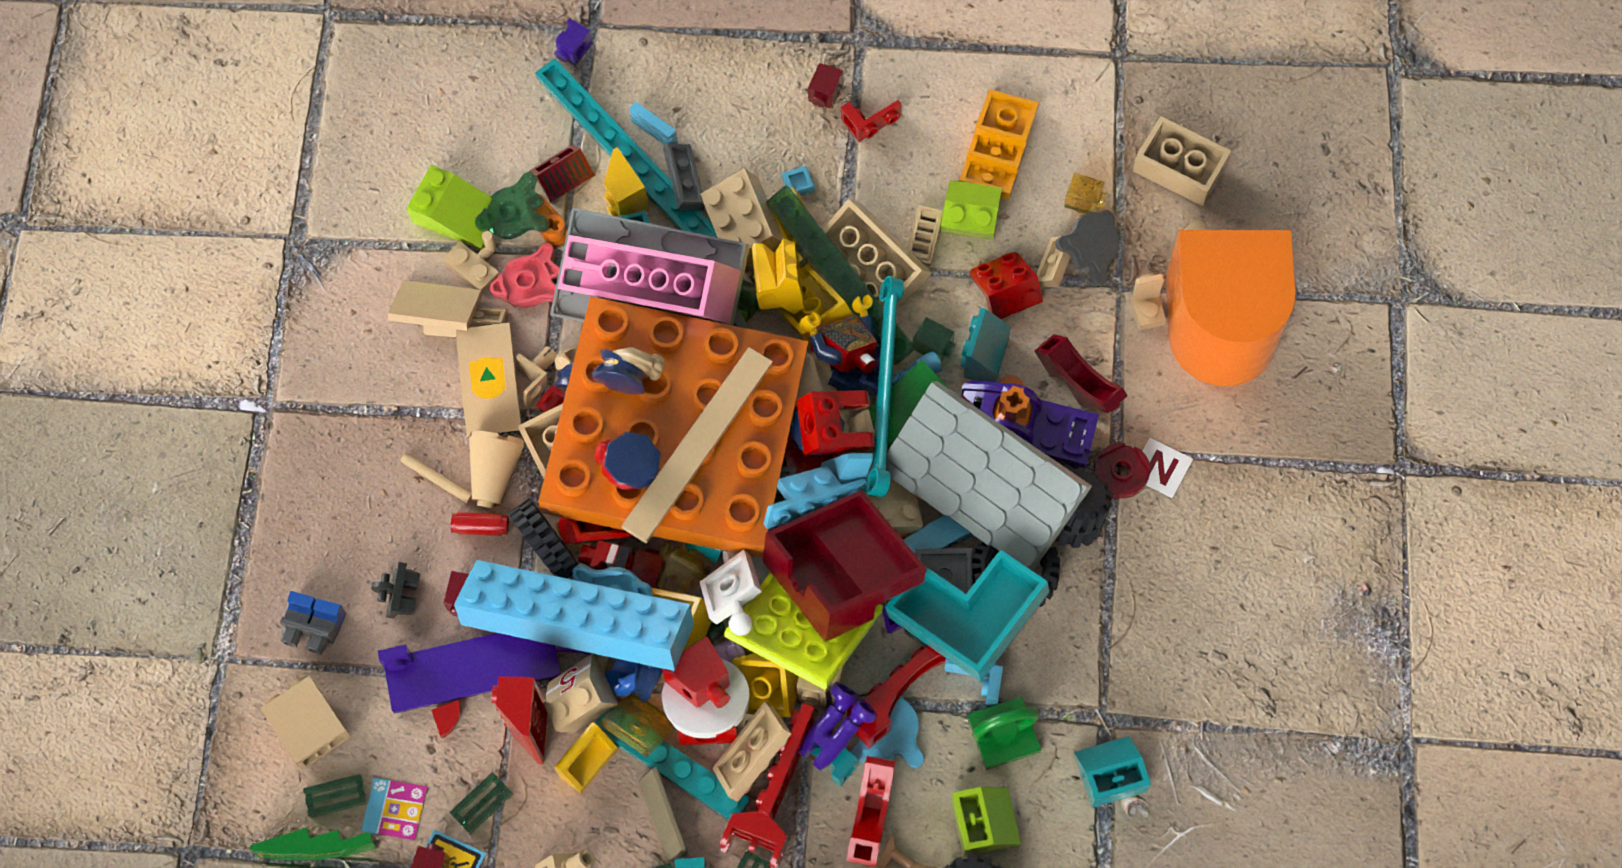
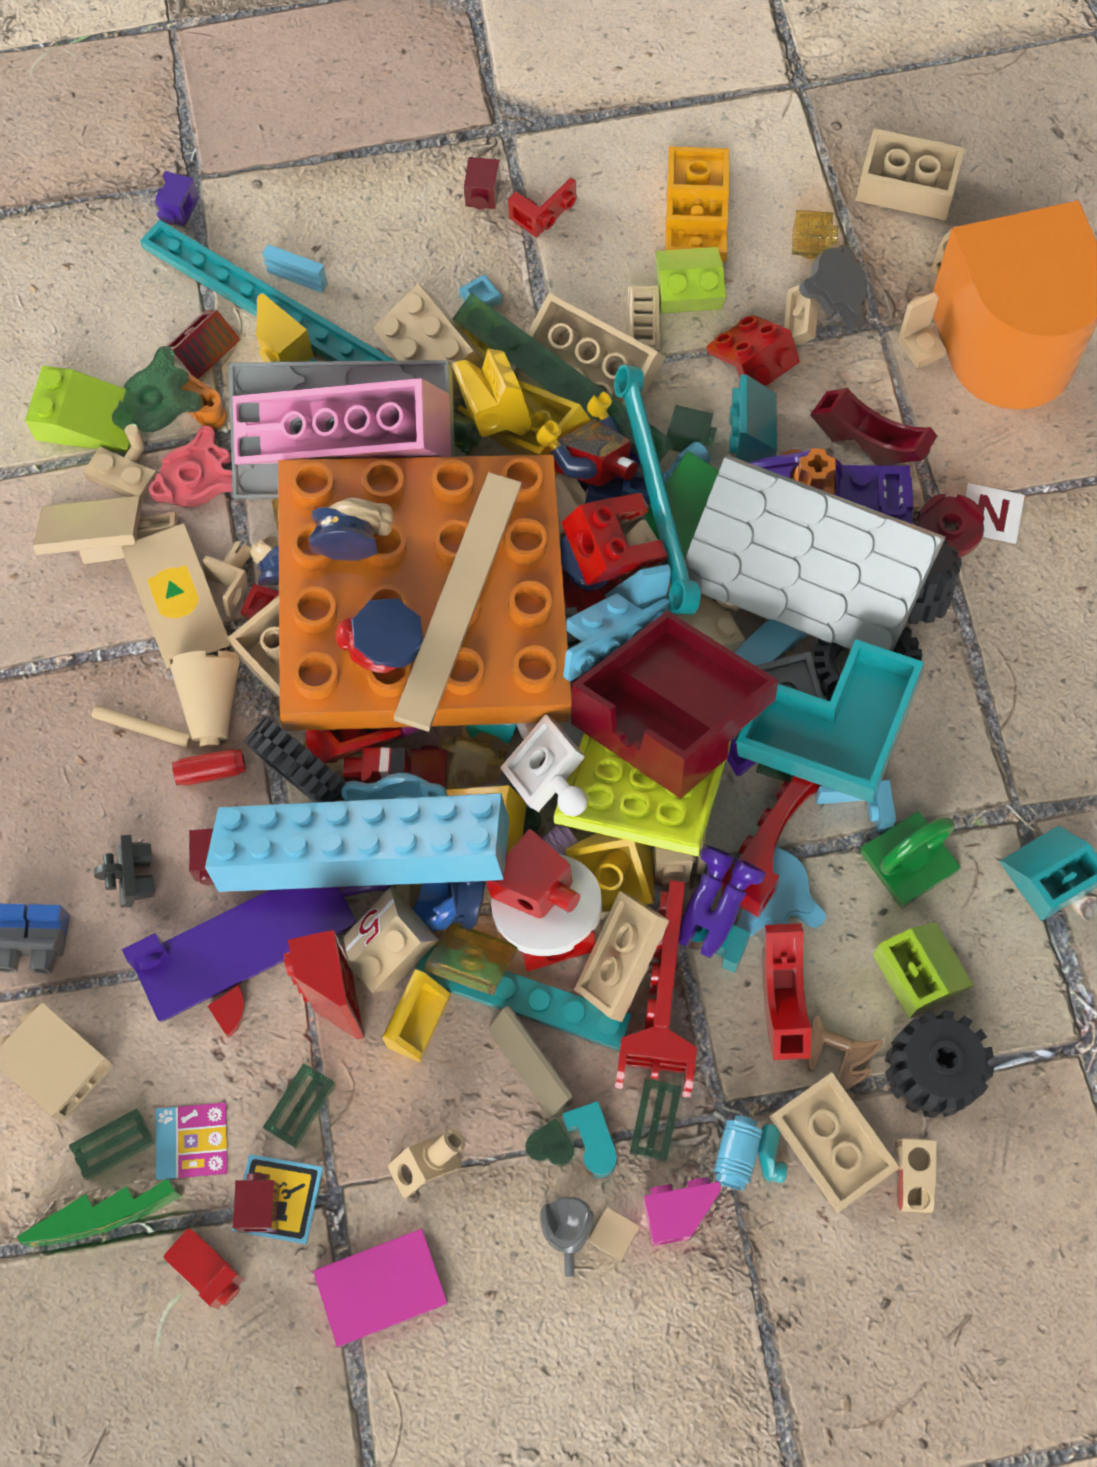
camera: 15 degrees left, 0 degrees up
(684, 176) = (347, 316): dark grey tile -> none

